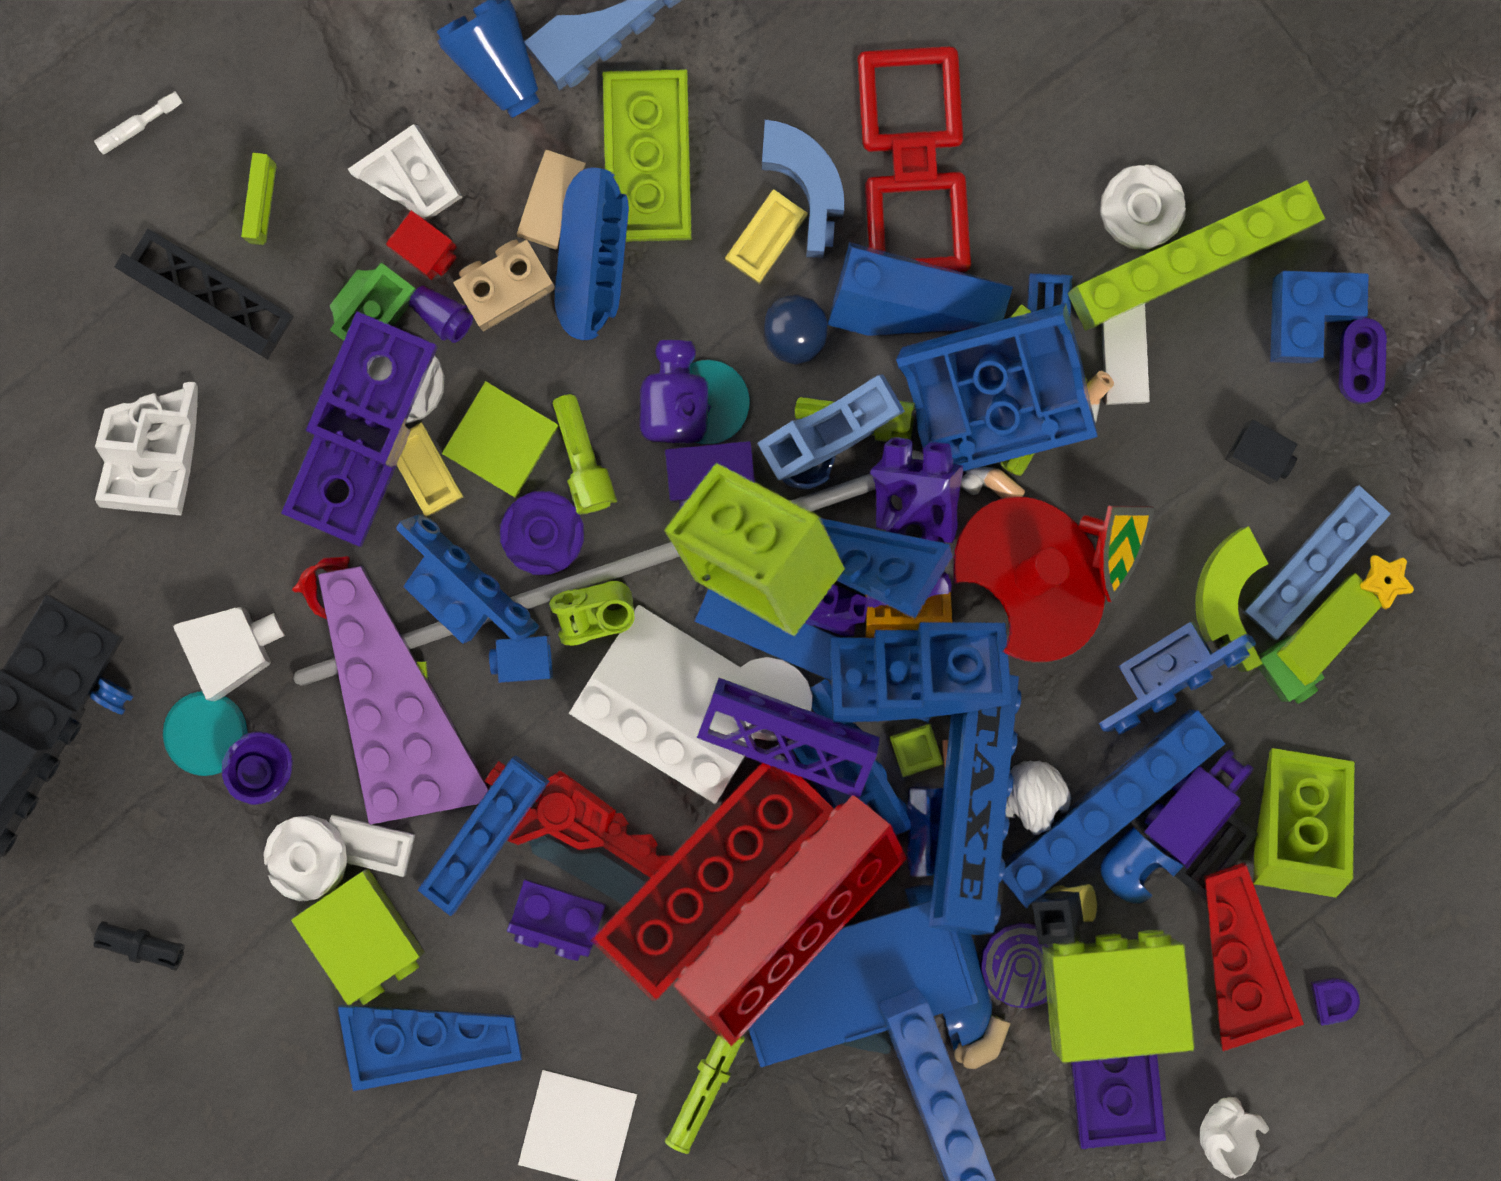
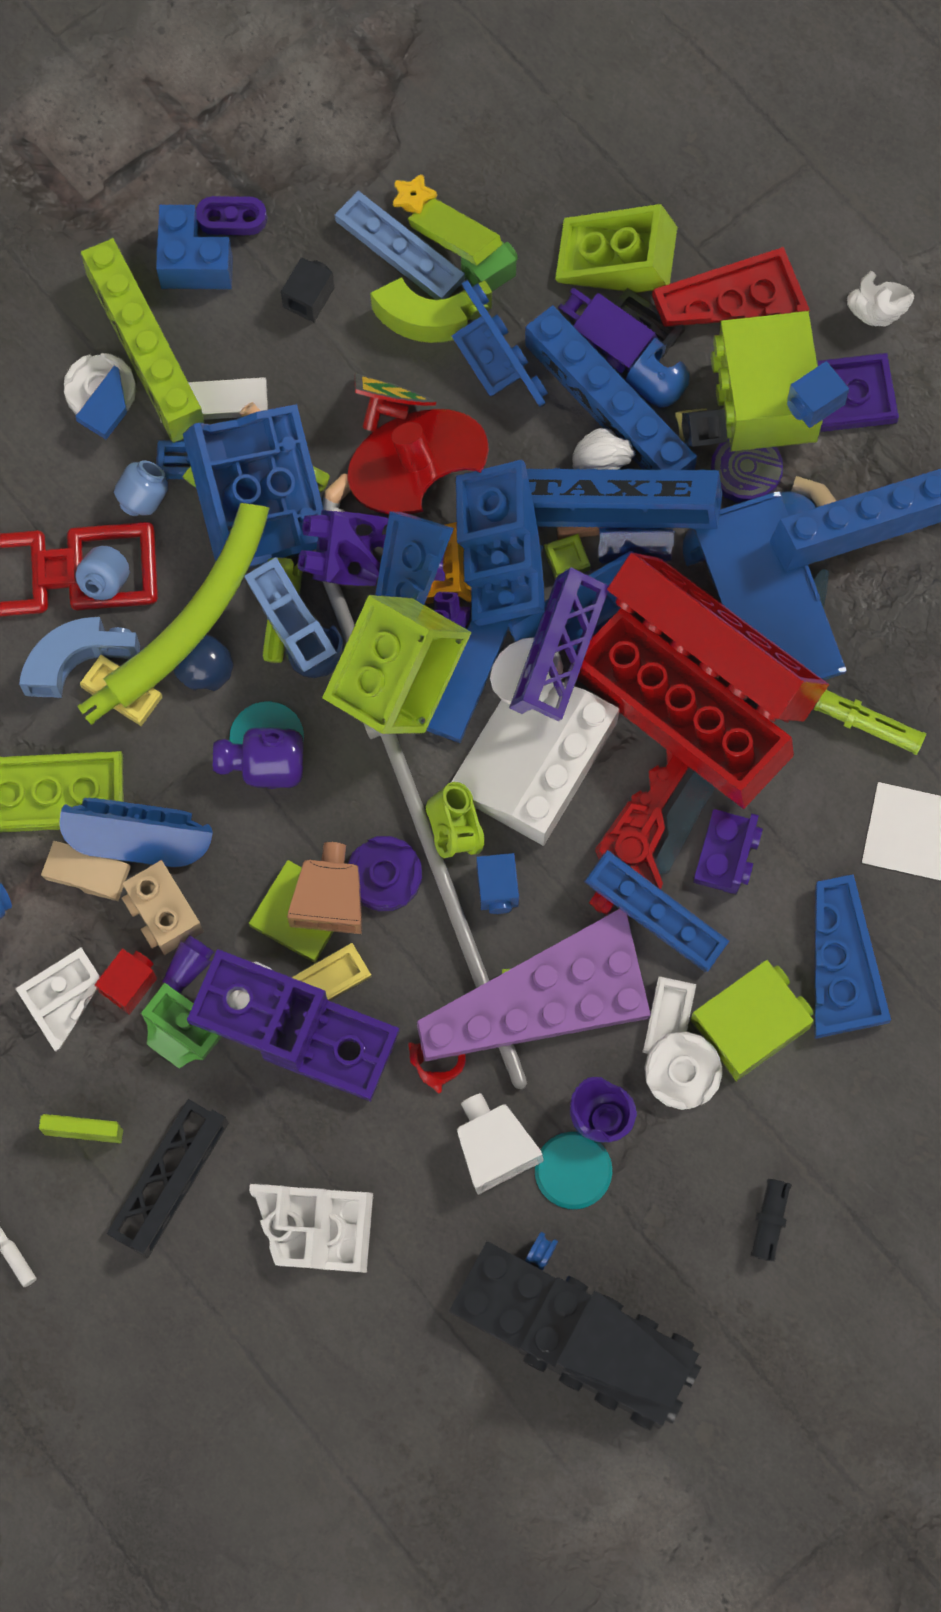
camera: 90 degrees left, 15 degrees down
(457, 589) = (437, 939): blue bracket -> none
(509, 469) = (328, 894): none -> nougat torso
(588, 483) = (340, 827): lime piece -> none
(691, 465) = (328, 731): dark purple brick -> none
(827, 315) = (192, 623): none -> lime animal
(902, 212) = (102, 573): none -> medium blue head
(903, 295) = (173, 561): blue wedge -> none
(1006, 256) = (141, 488): none -> medium blue head
(1075, 1053) = (817, 395): none -> blue brick
(1113, 213) = (105, 406): none -> blue tile
(1334, 1000) = (762, 229): dark purple tile -> none

